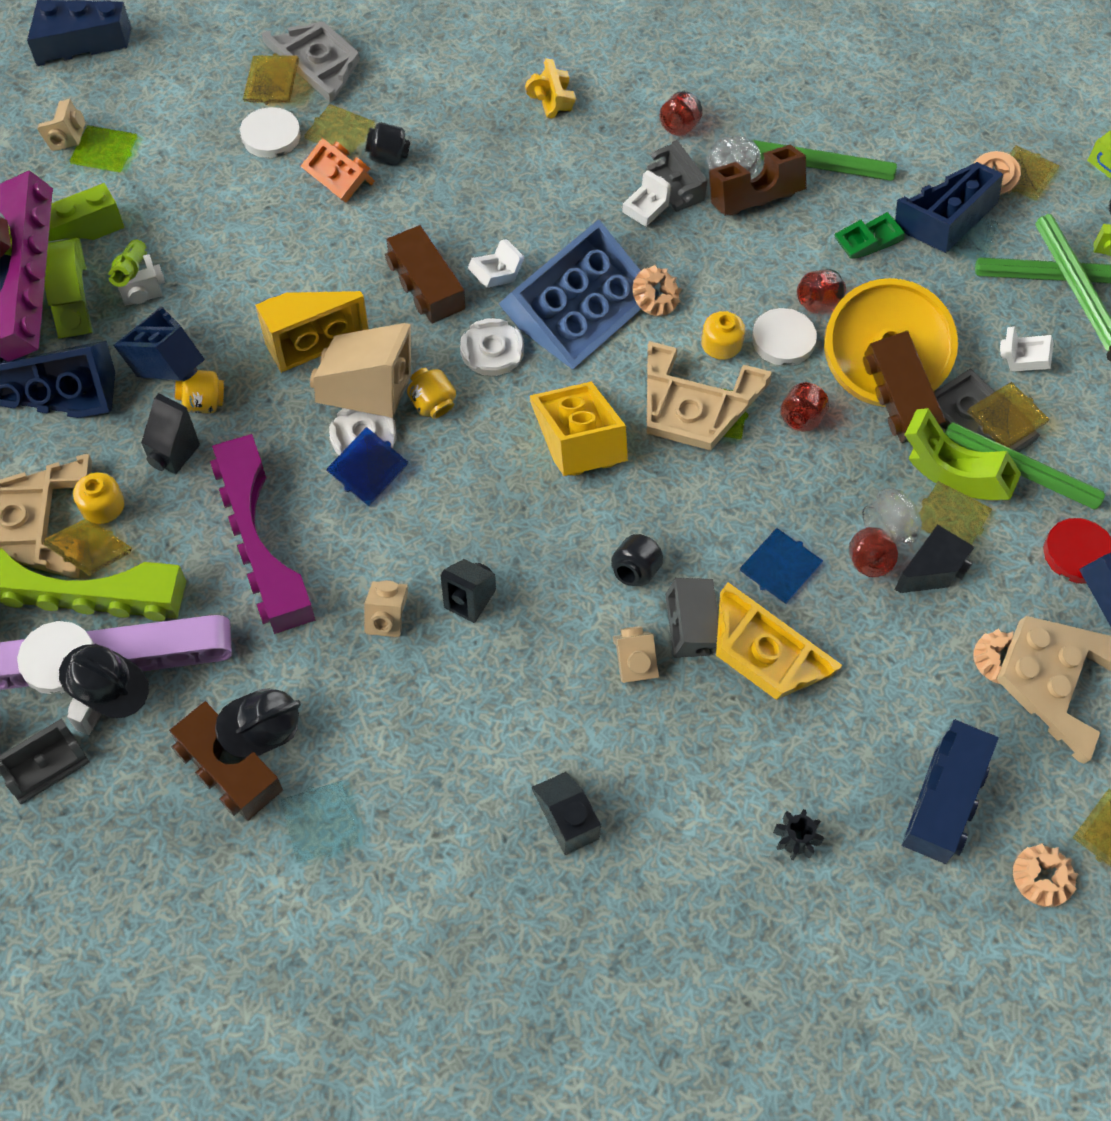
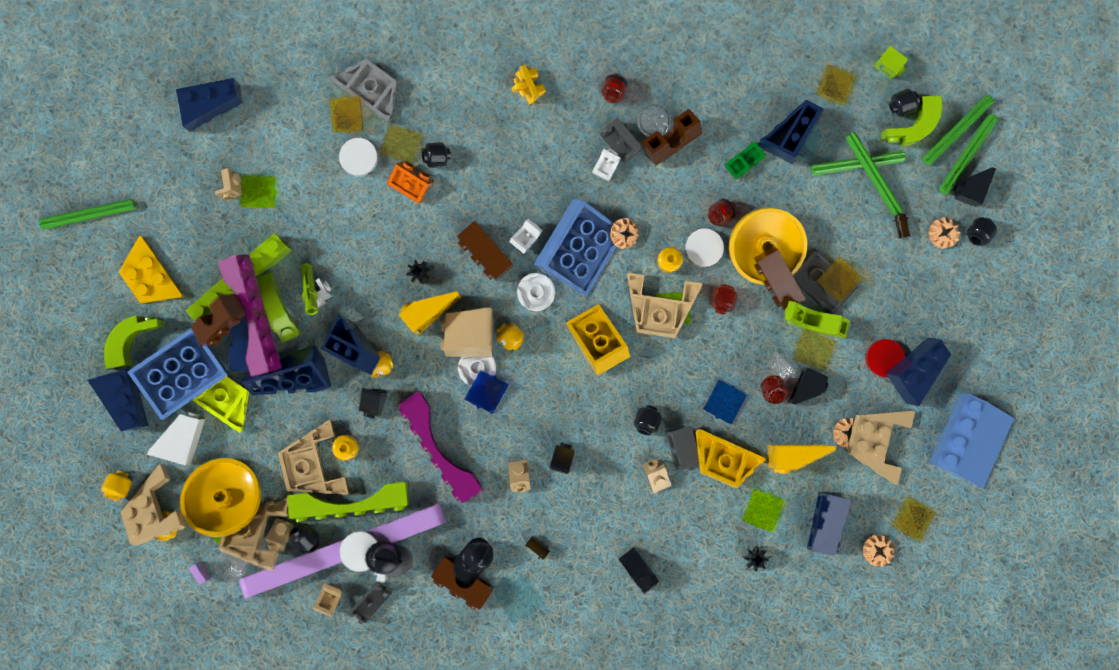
camera: 15 degrees left, 25 degrees up
(87, 546) = (350, 478): clear yellow piece -> none
(310, 278) = (413, 268): none -> black gear
(390, 740) = (538, 548): none -> dark brown pin
(825, 758) = (763, 510): none -> clear neon green piece
(839, 162) = (709, 104): bright green axle -> none
(902, 657) = (792, 457): none -> yellow slope
(1005, 164) = (822, 87): light nougat gear -> none
(1027, 352) = (847, 231): white bracket -> none
(1030, 468) = (851, 313): bright green axle -> none

